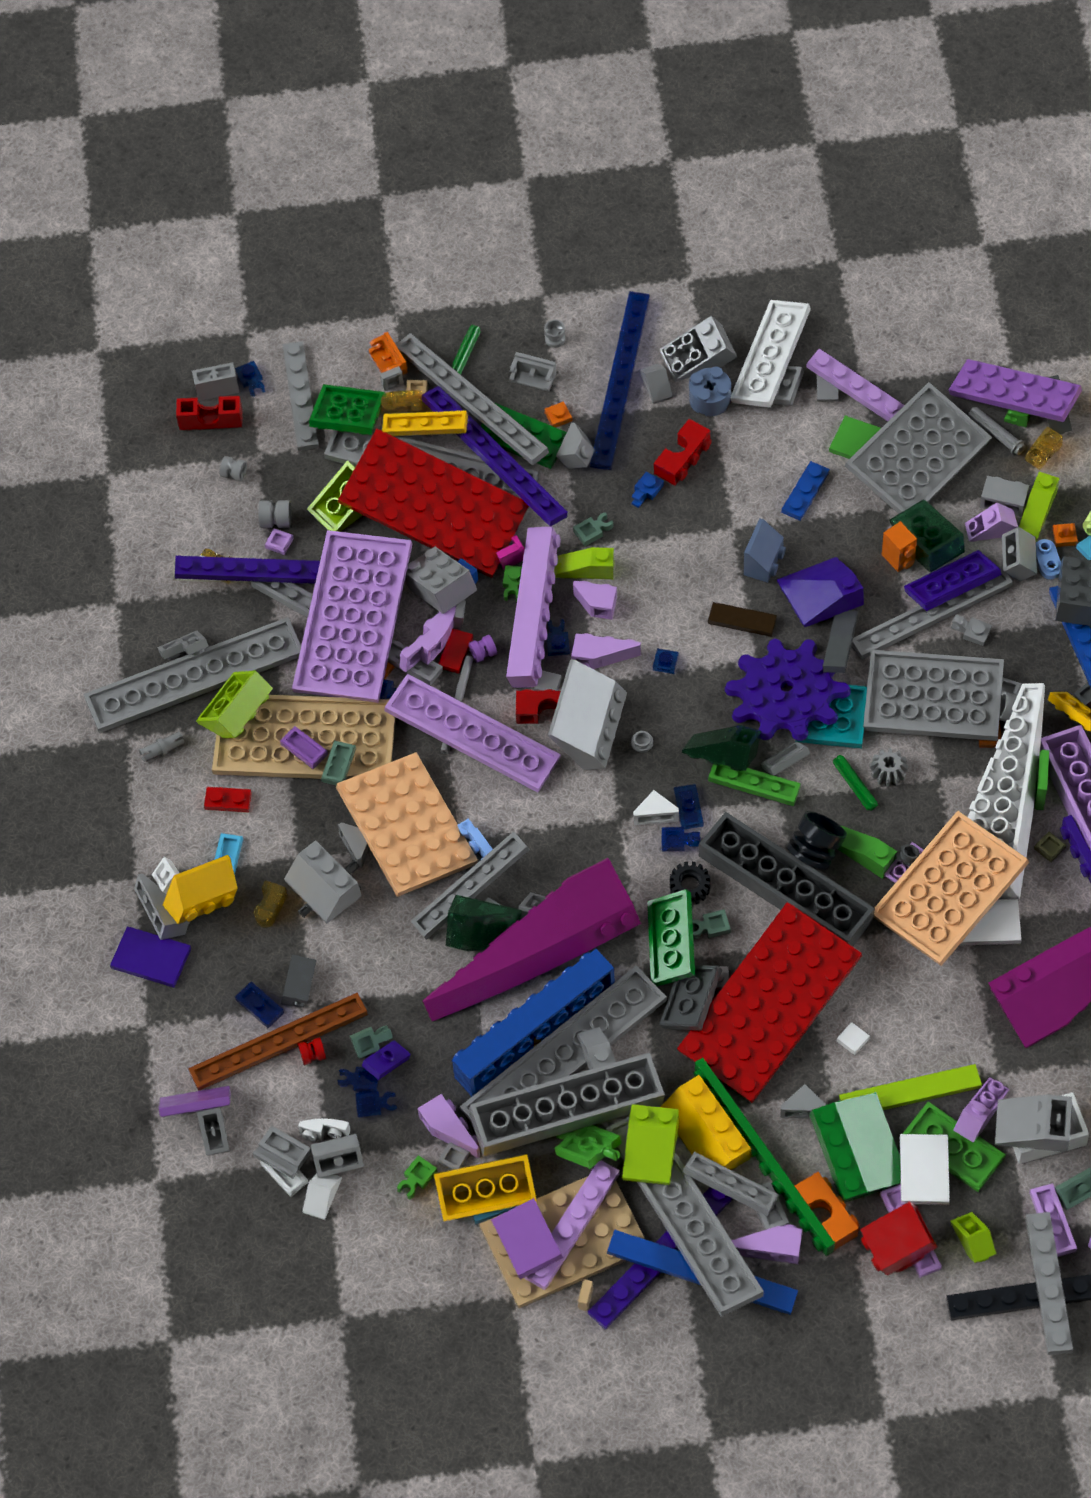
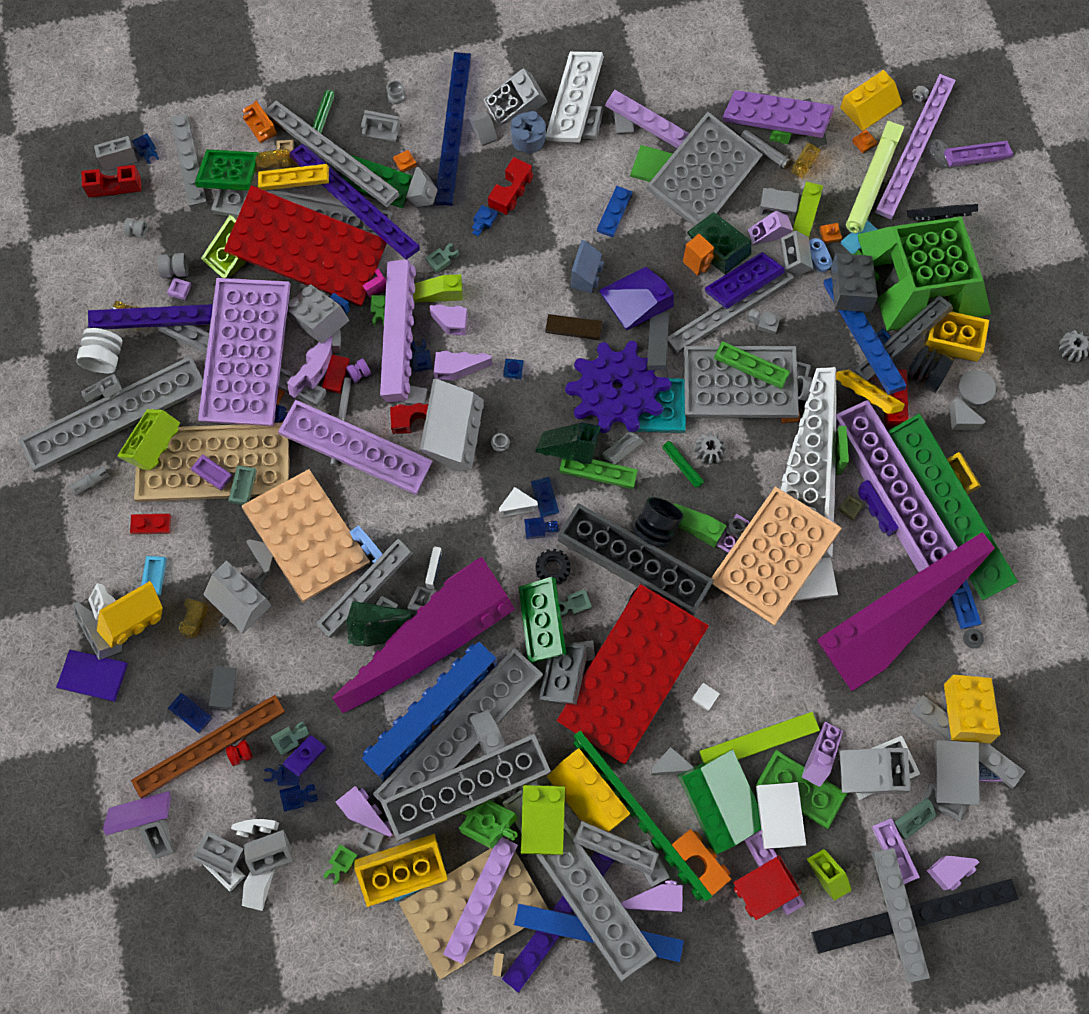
camera: 10 degrees left, 10 degrees up
(183, 602) = (99, 350): none -> white wheel
(391, 378) = (263, 140): light grey tile -> none
(527, 1238) = (442, 920): medium lavender tile -> none
(551, 871) = (433, 567): none -> white tile
(948, 676) = (751, 365): none -> bright green tile

